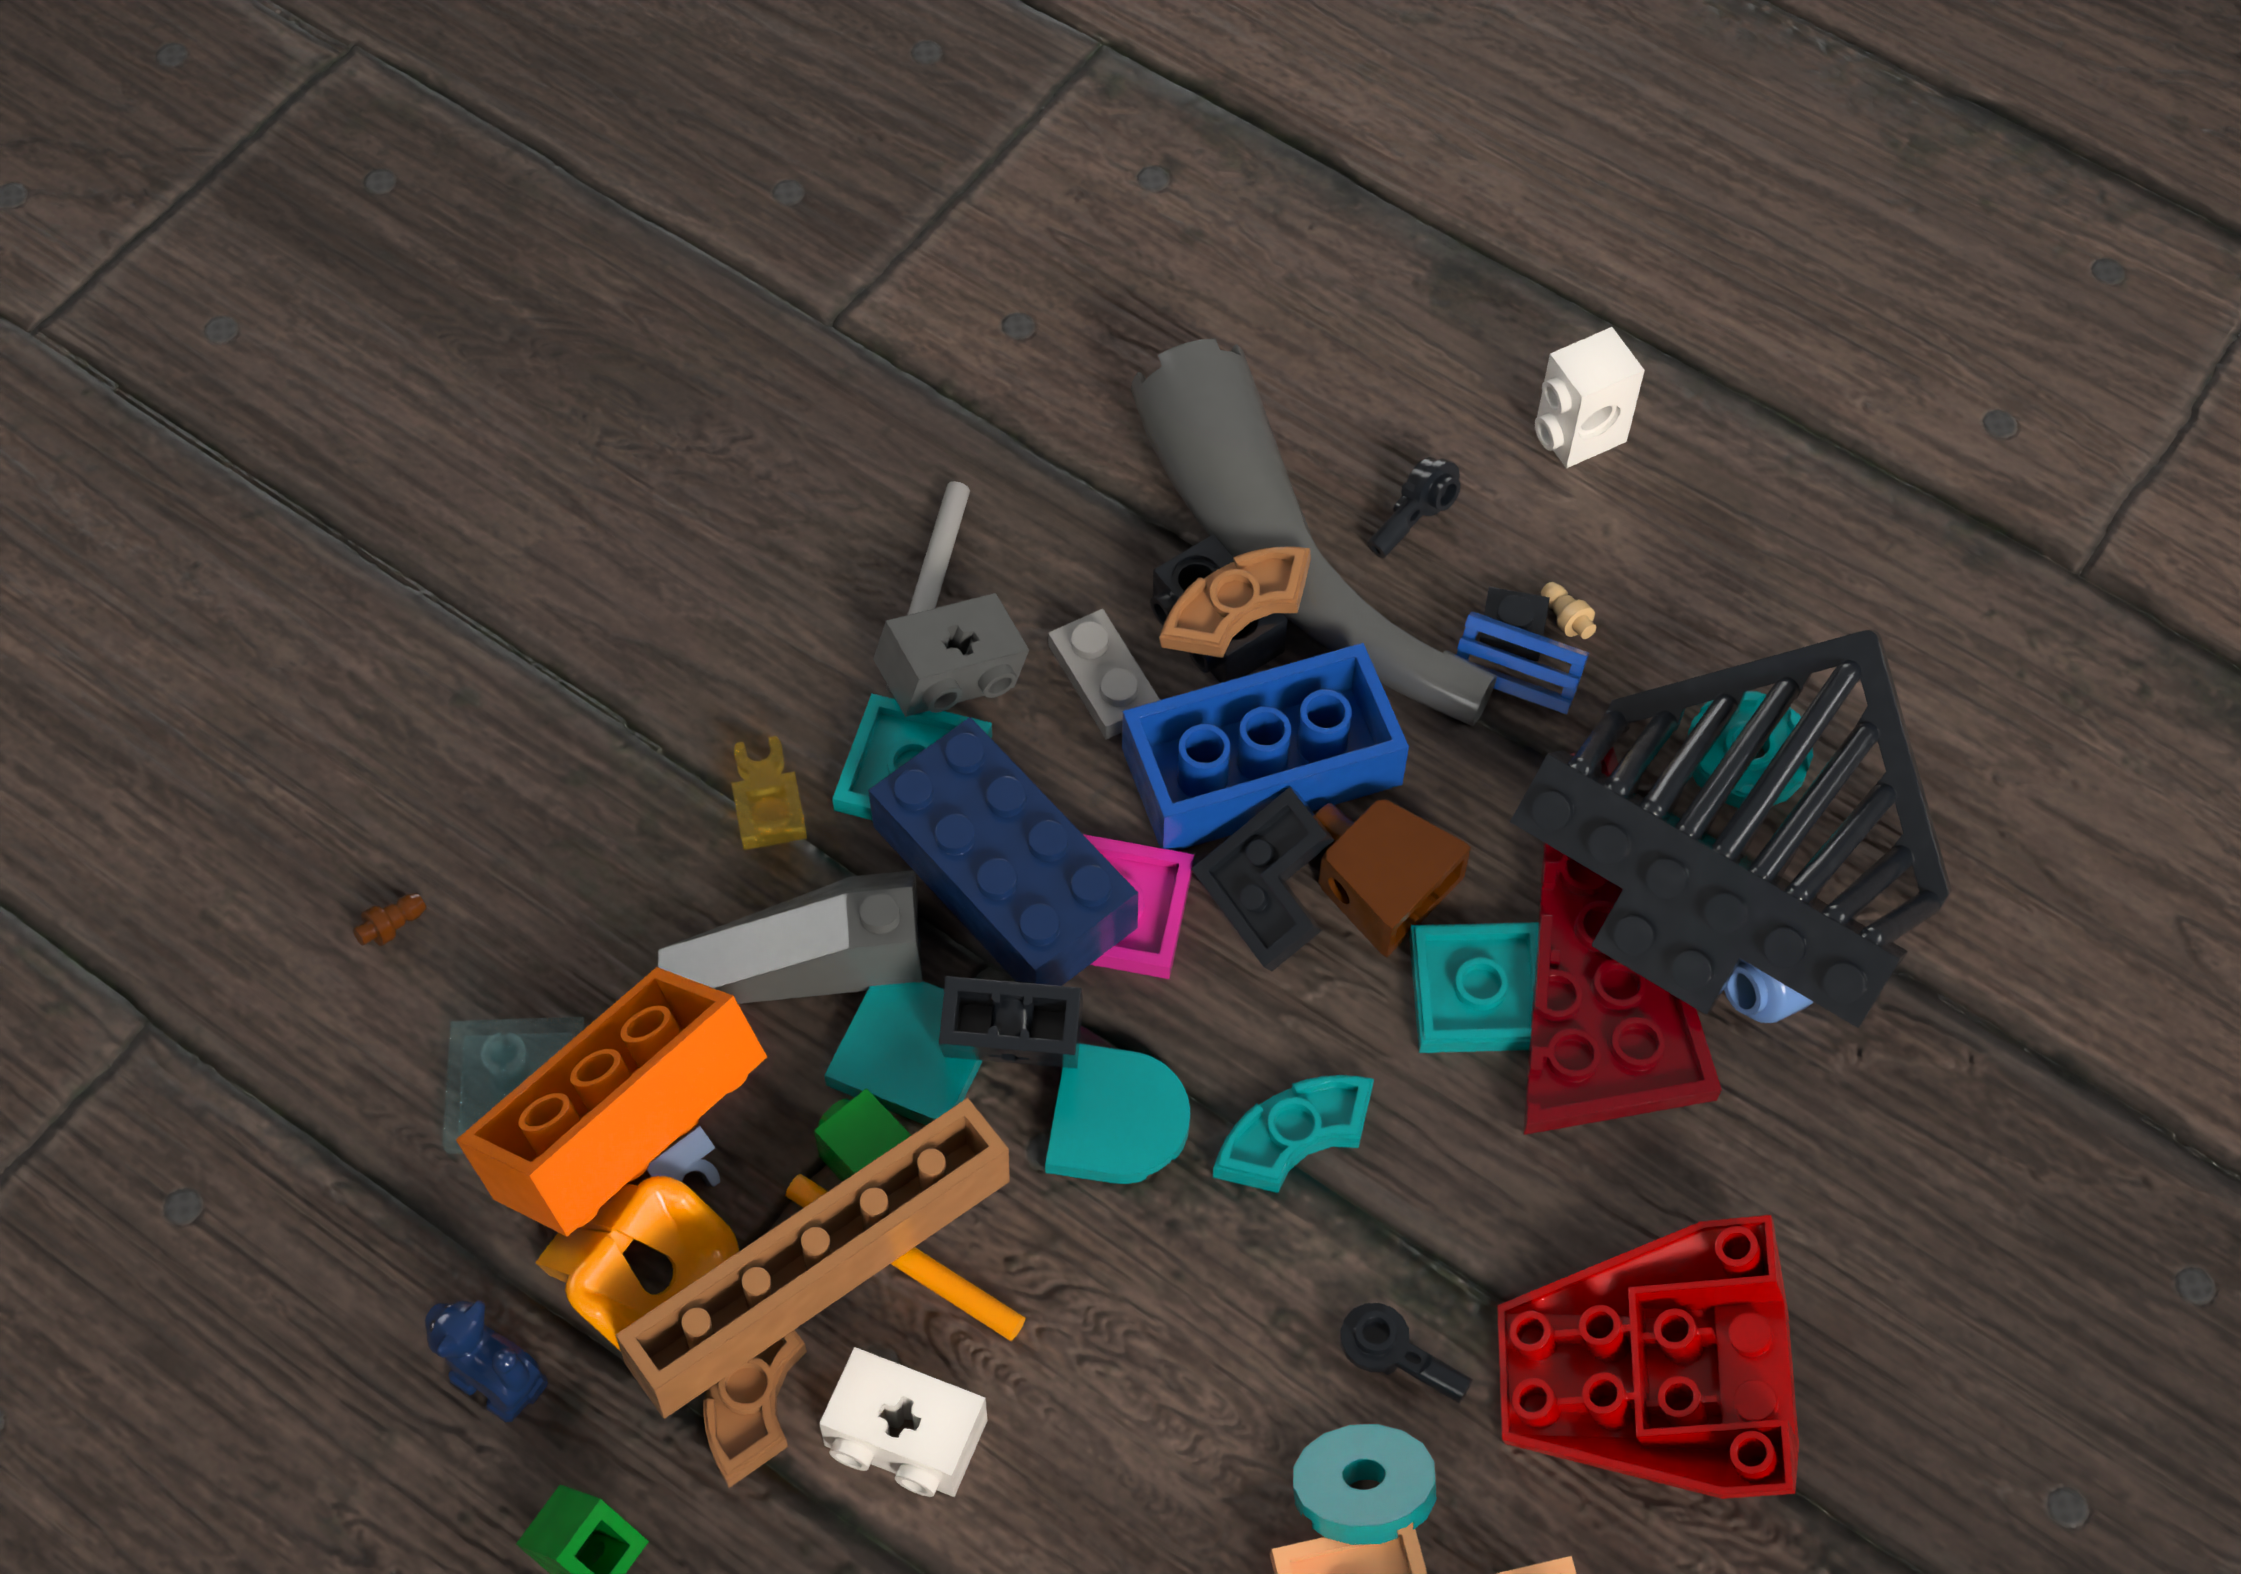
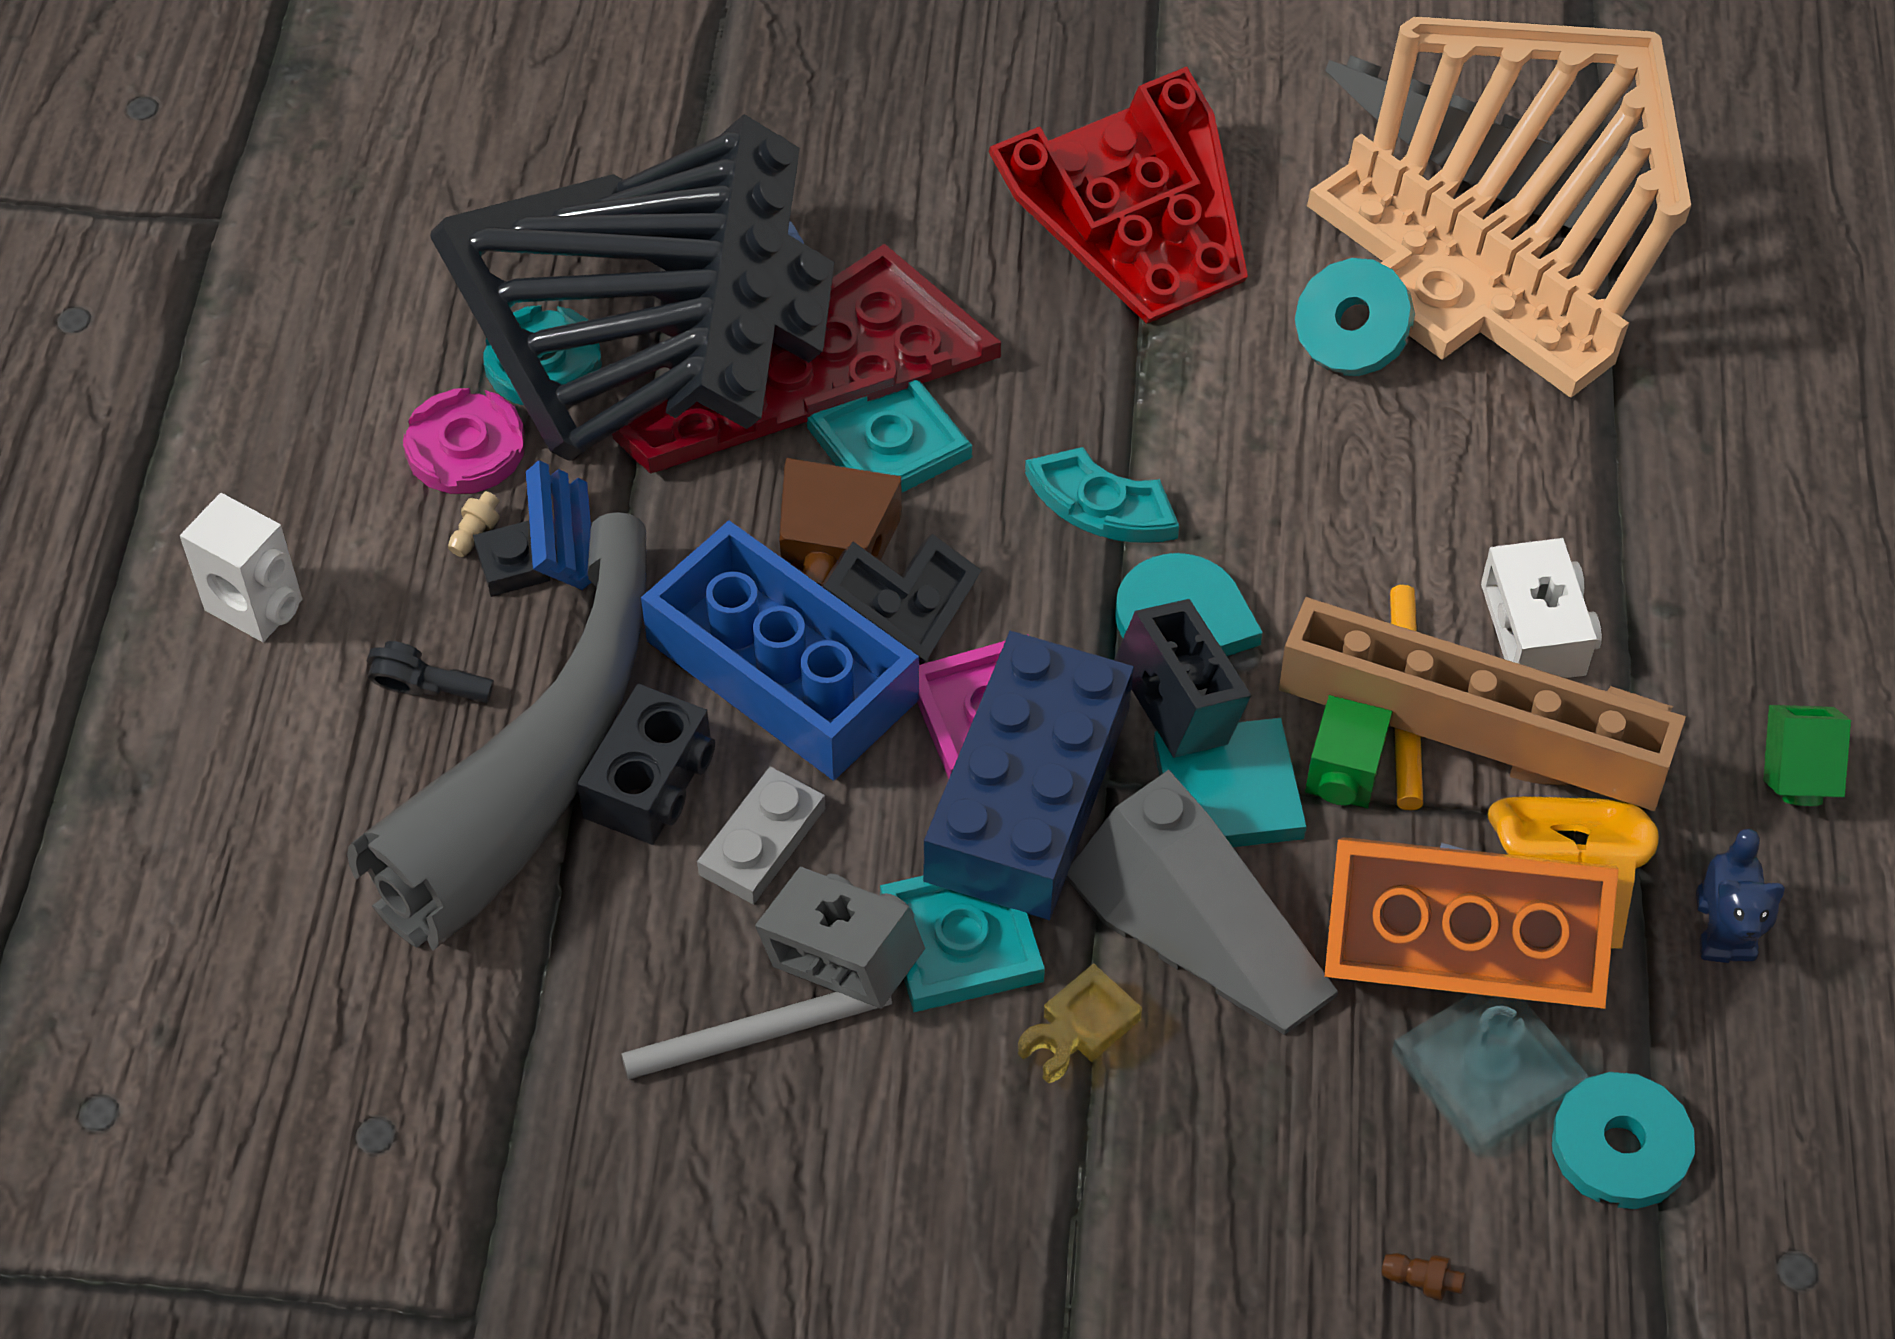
camera: 120 degrees left, 5 degrees down
(370, 1104) = (1629, 1104): none -> teal tile
(1234, 596) = (648, 720): medium nougat tile -> none
(1379, 1341) = (1233, 370): black plate -> none
(1672, 639) = (464, 441): none -> dark pink tile

